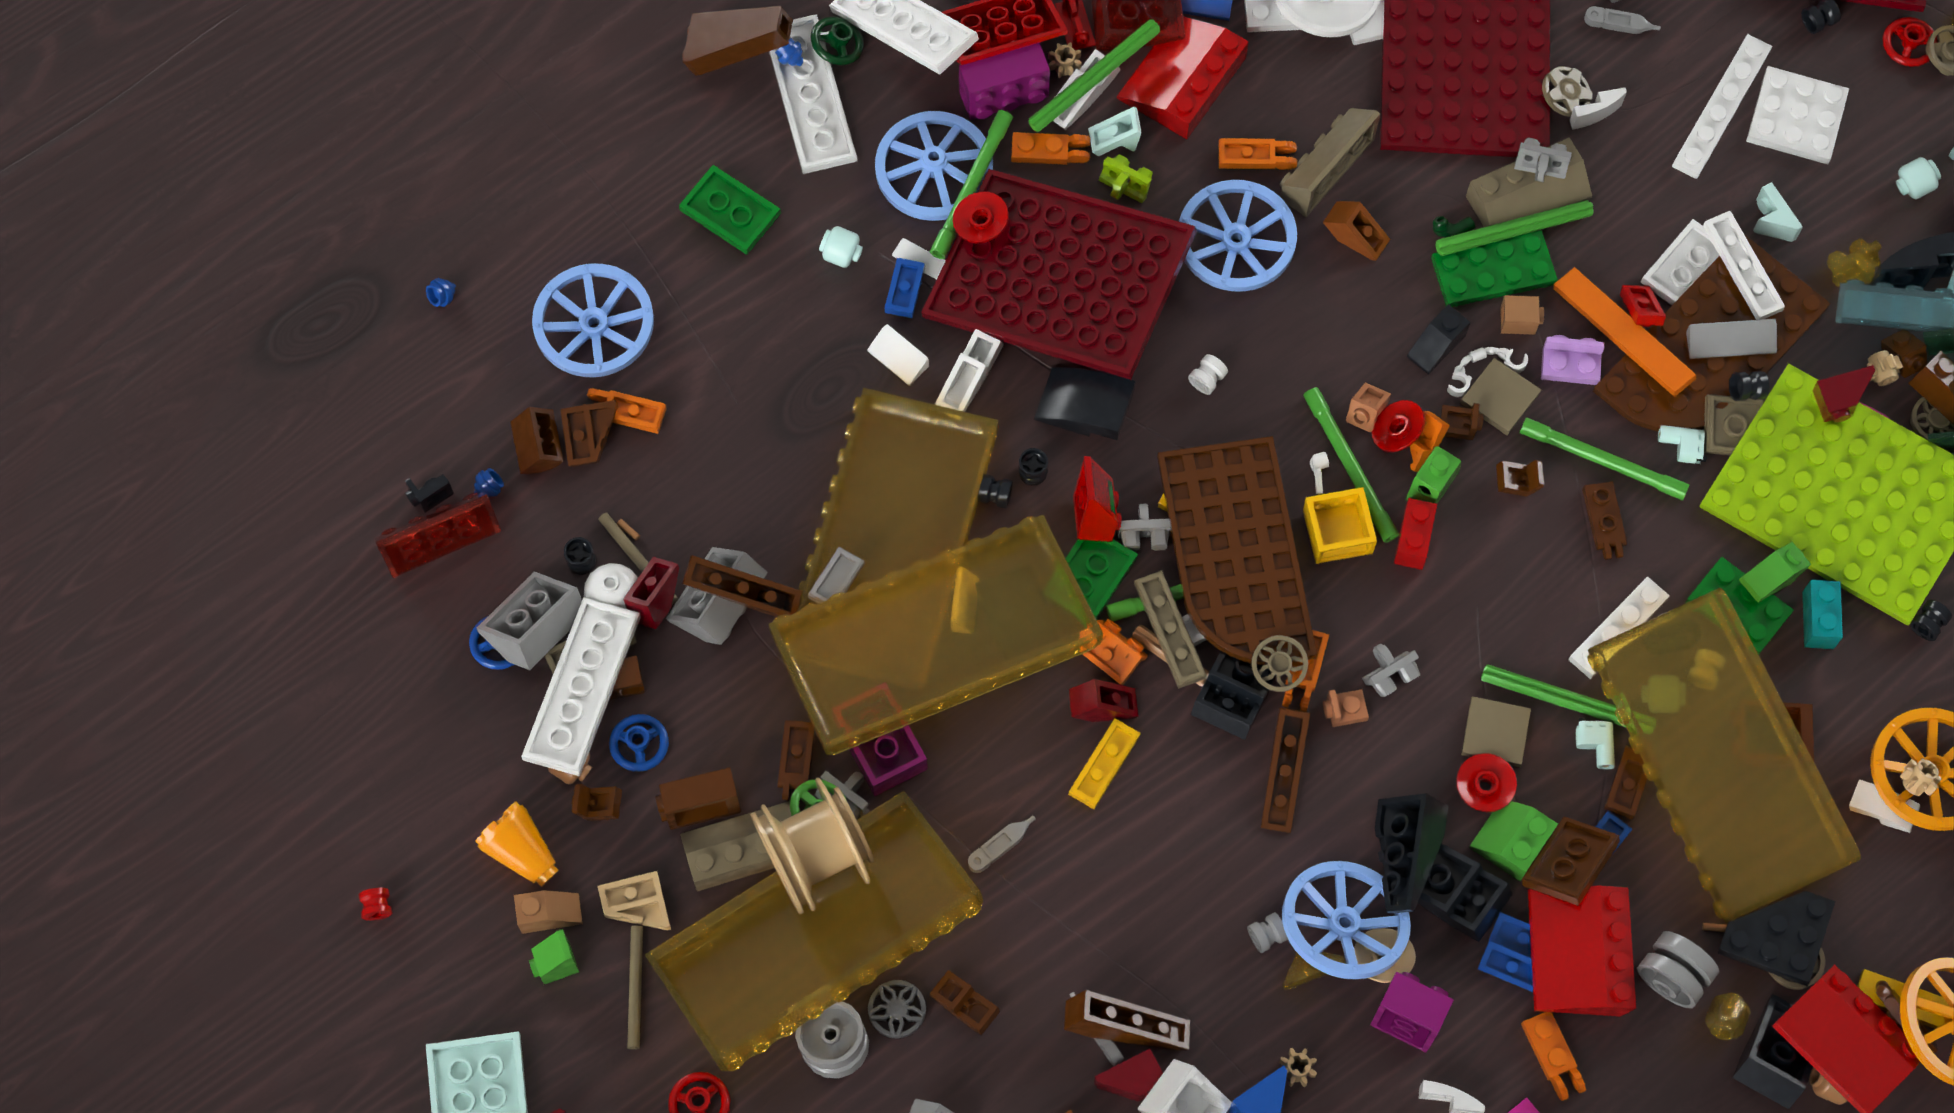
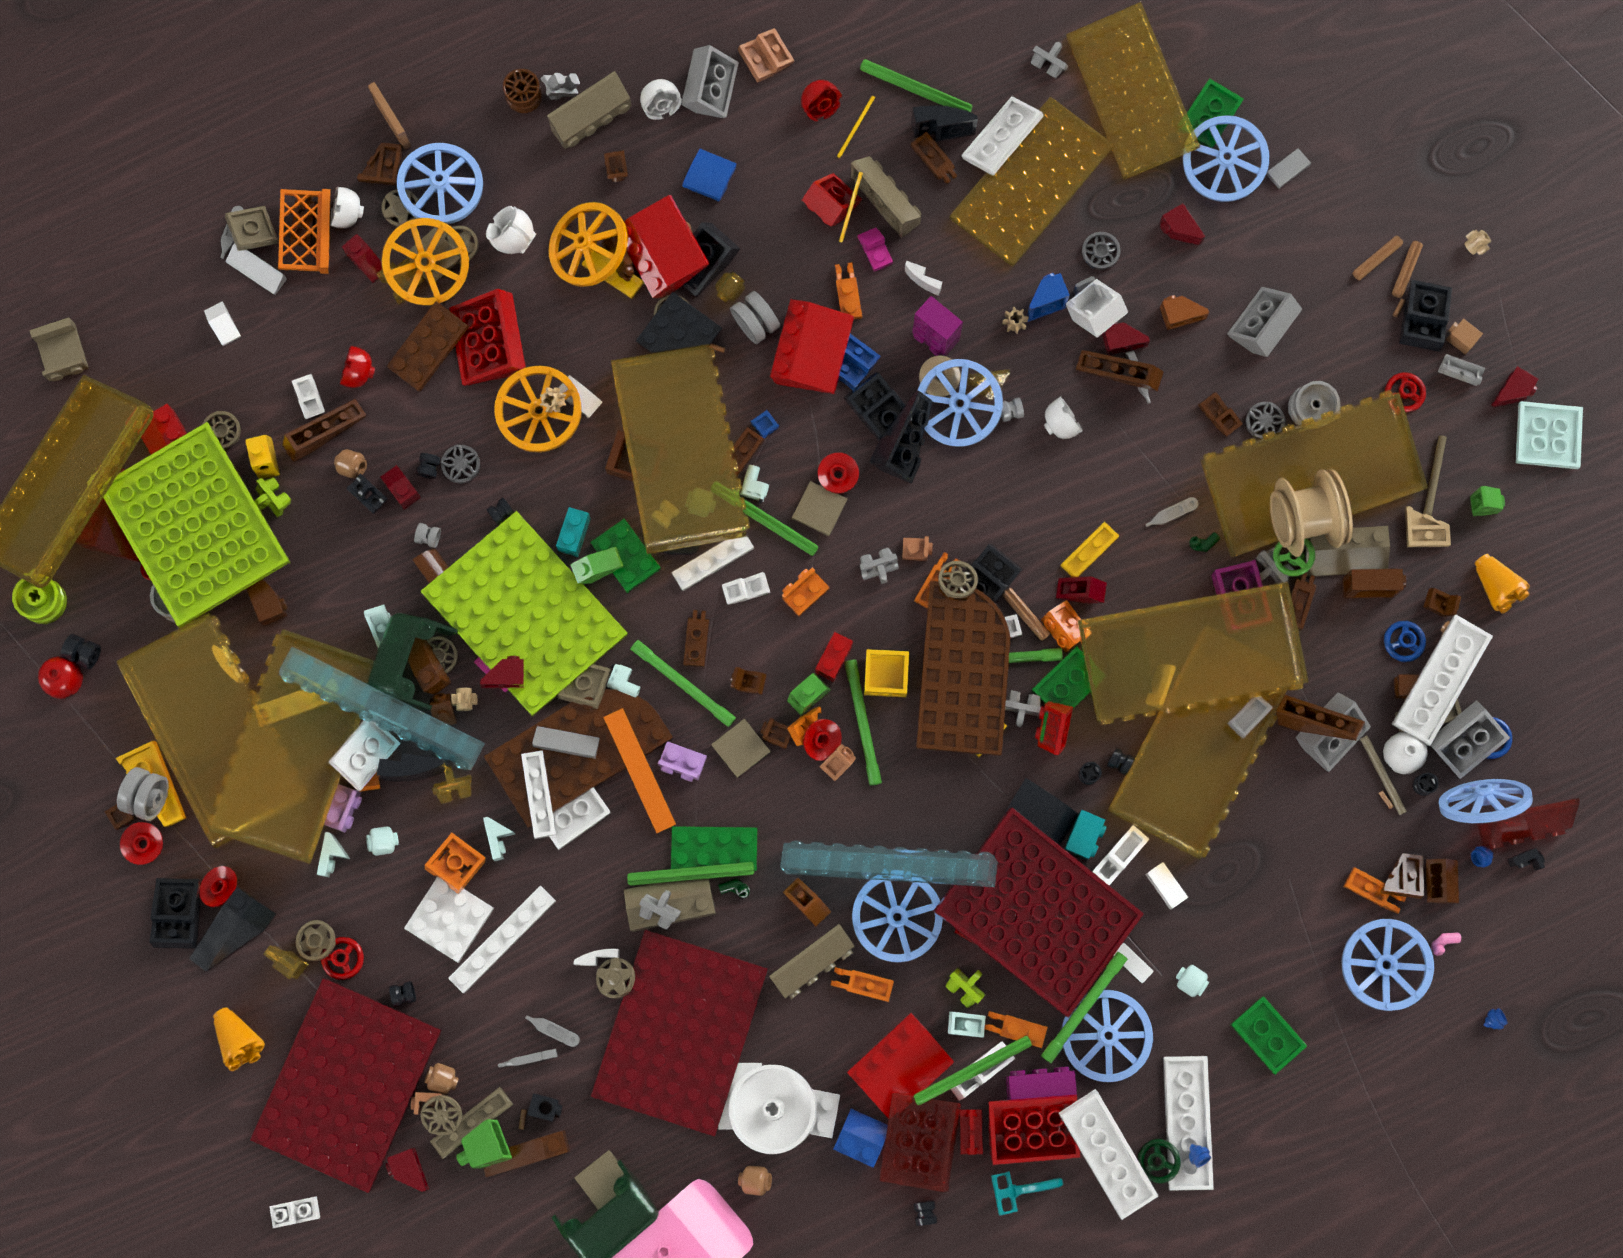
camera: 165 degrees left, 10 degrees up
(375, 904) = (1601, 569): red wheel -> none
(501, 535) = (1482, 794): none -> light blue wheel
(521, 372) = (1444, 939): none -> bright pink arm
(547, 910) = (1486, 537): medium nougat slope -> none
(653, 592) = (1379, 741): dark red slope -> none
(733, 36) = (1245, 1178): reddish brown slope -> none
(904, 287) = (1151, 938): blue plate -> none
(947, 808) = (1204, 544): none -> dark green arm
(976, 208) = (1096, 971): red dish -> none
(1020, 389) = (1084, 835): none -> teal brick
(1061, 53) = (981, 1100): tan gear -> none
(1170, 629) = (1024, 627): dark tan tile -> none
(1191, 931) = (1061, 420): none -> white cylinder
(1207, 374) = (947, 813): white wheel -> none
(1267, 275) = (889, 864): none -> clear light blue brick
(1285, 769) = (969, 516): reddish brown slope -> none
(1318, 462) = (885, 729): white hand -> none
(1439, 339) = (773, 799): black slope -> none
(1476, 355) = (748, 783): white piece -> none
(1479, 613) = (804, 591): none -> orange bracket
(1513, 838) = (831, 431): bright green slope -> none
(1520, 314) = (707, 804): medium nougat brick -> none
(1562, 600) = (746, 588): none -> white slope
(1571, 860) = (800, 404): reddish brown tile -> none
(1642, 305) = (619, 787): red plate -> none
(1752, 385) = (565, 702): black wheel -> none
(1821, 158) = (460, 855): none -> orange brick

